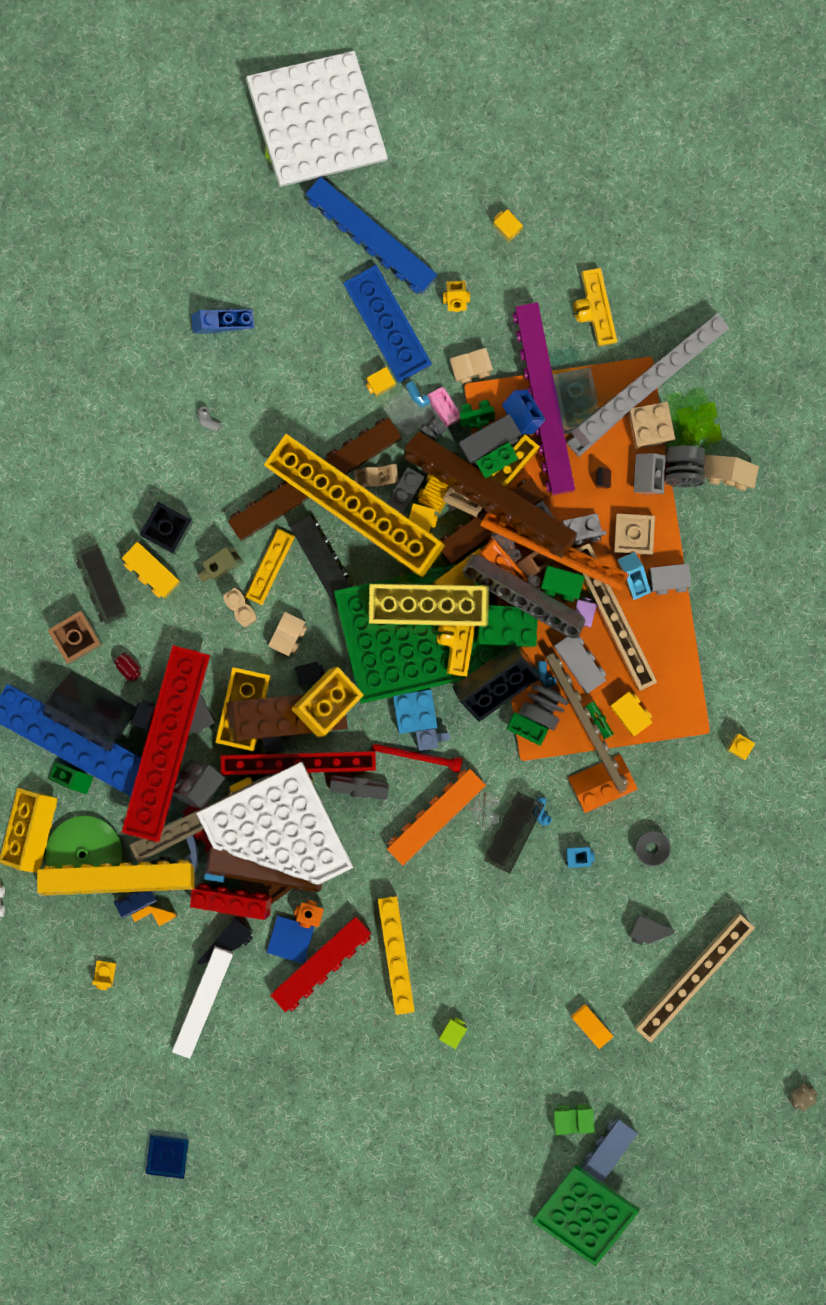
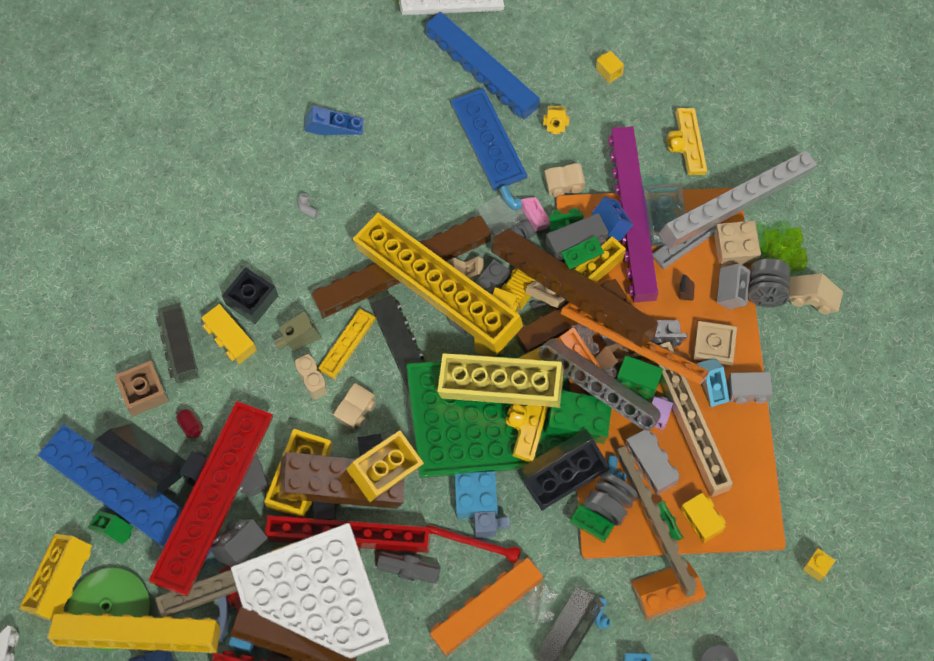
camera: 10 degrees right, 20 degrees down
(380, 382) = (476, 186): yellow brick -> none

